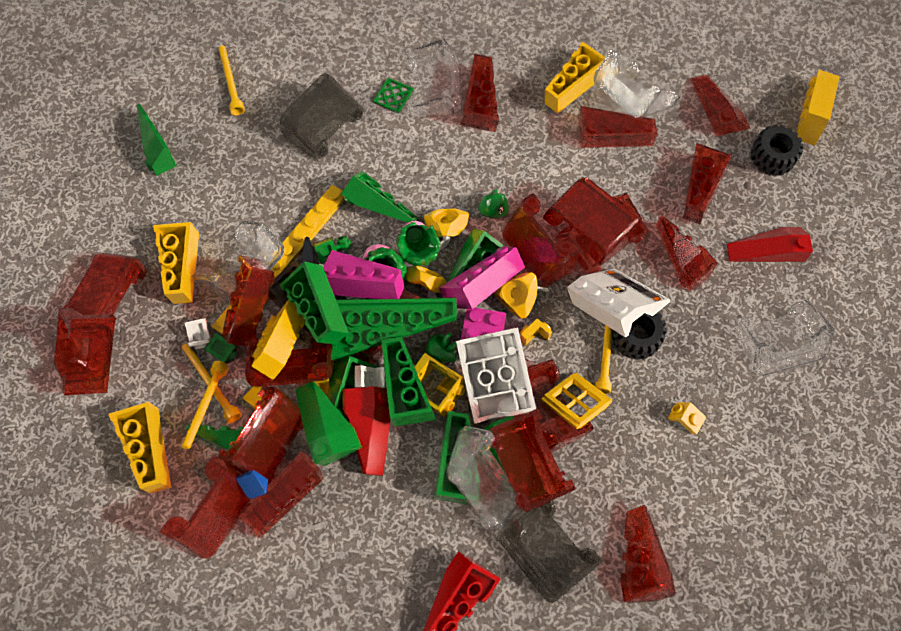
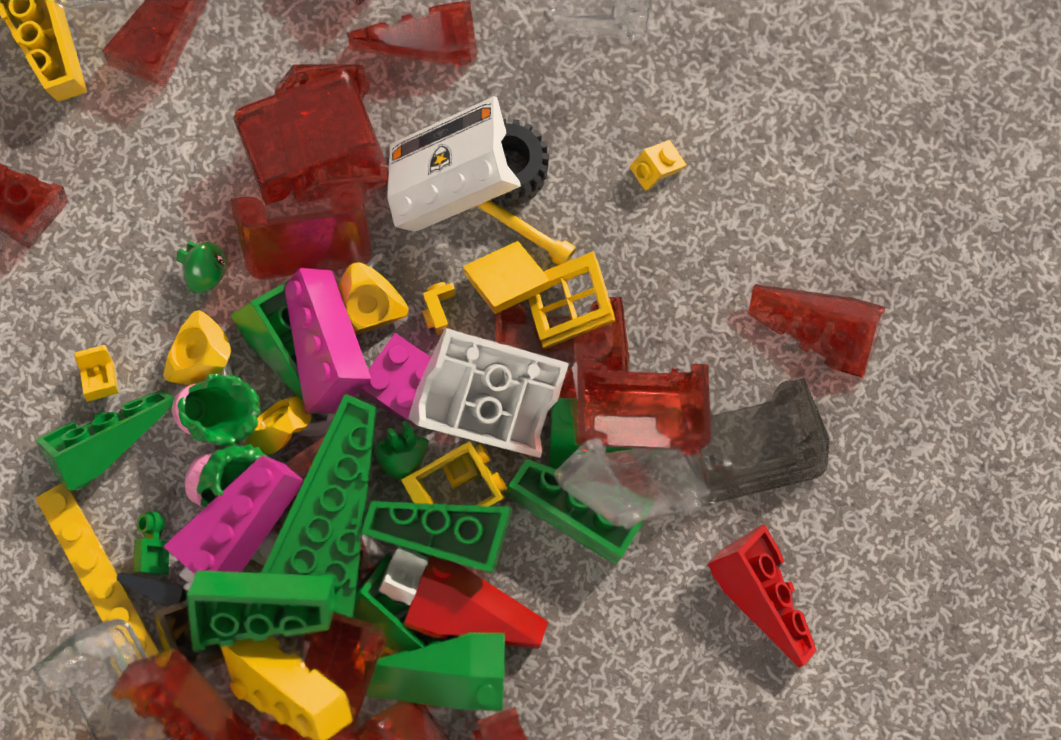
camera: 70 degrees left, 10 degrees up
(411, 183) = (97, 373): none -> yellow bracket
(571, 360) = (506, 277): none -> yellow tile

